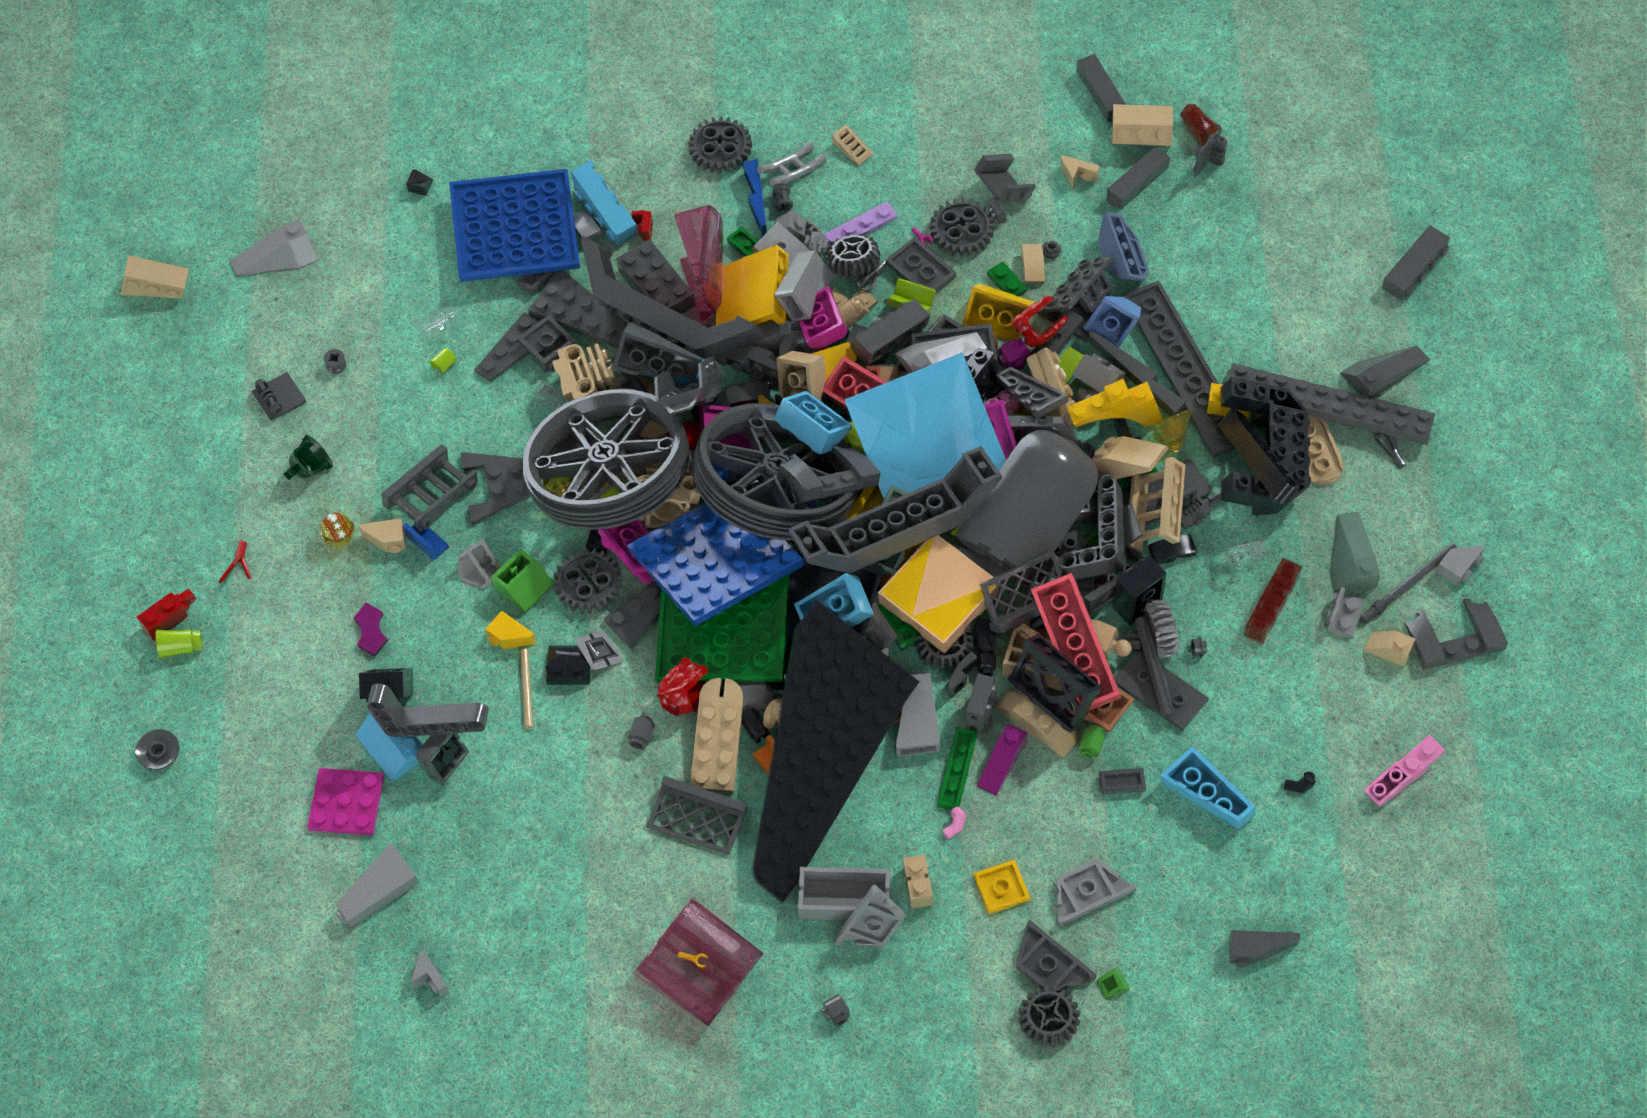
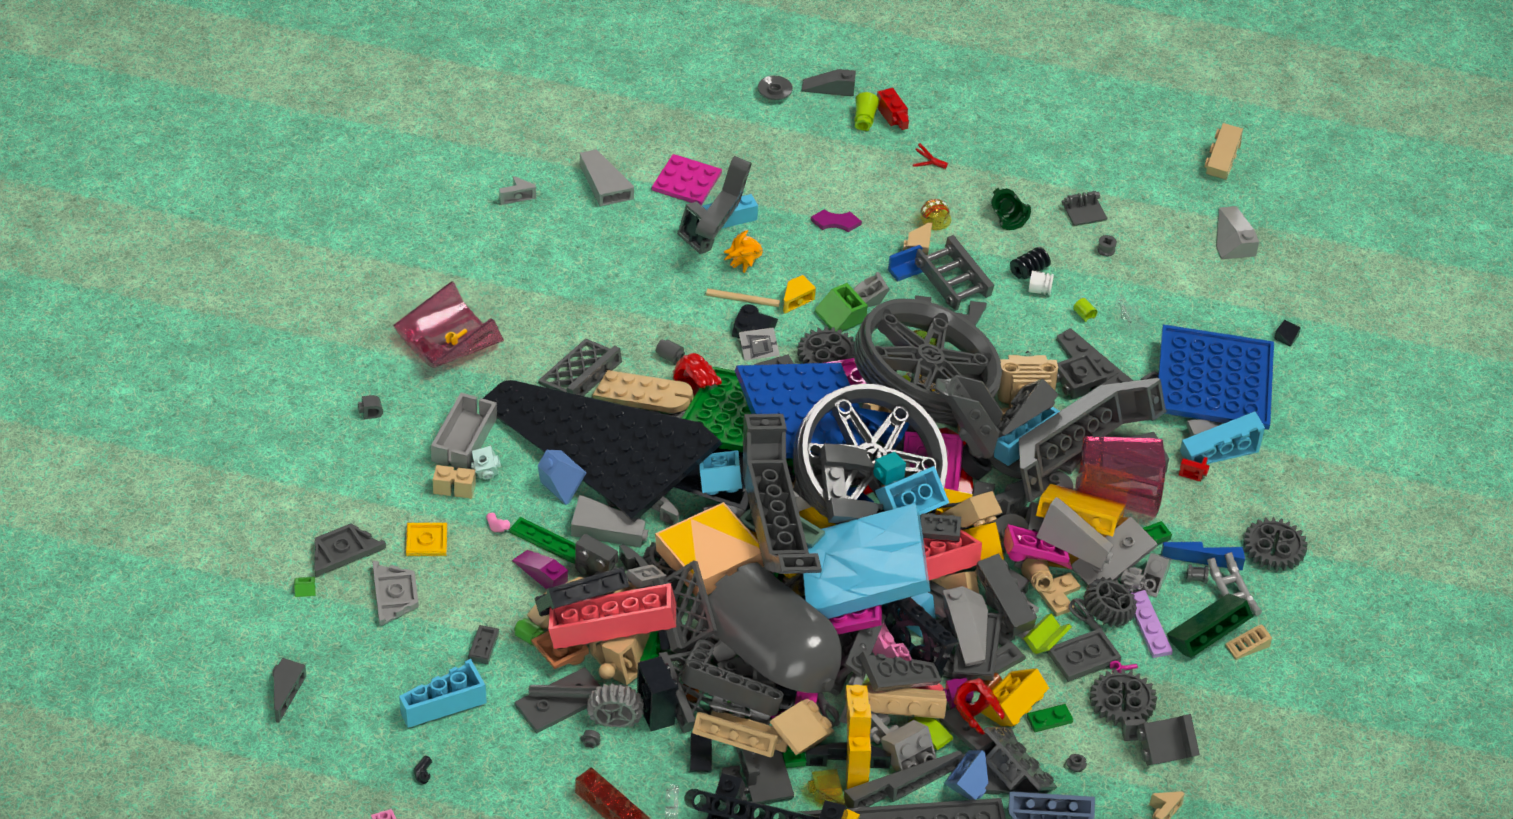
camera: 100 degrees right, 15 degrees down
(132, 693) = (833, 82): none -> dark grey slope
(387, 422) = (1031, 261): none -> black piece
(397, 679) = (770, 202): black brick -> none
(415, 405) = (1040, 282): none -> white piece
(463, 692) = (743, 250): none -> light orange hair
(795, 440) = (889, 468): none -> teal brick
(838, 387) = (941, 526): none -> dark grey bracket
(848, 174) = (1210, 625): none -> dark green brick
(872, 921) = (431, 431): light grey wing -> none
(874, 773) = (560, 474): none -> medium blue slope
(881, 856) = (485, 462): none -> light aqua brick
(994, 644) = (643, 576): none -> light grey slope
(1033, 263) = (1067, 740): tan slope -> none
(1041, 1033) = (295, 536): dark grey gear -> none

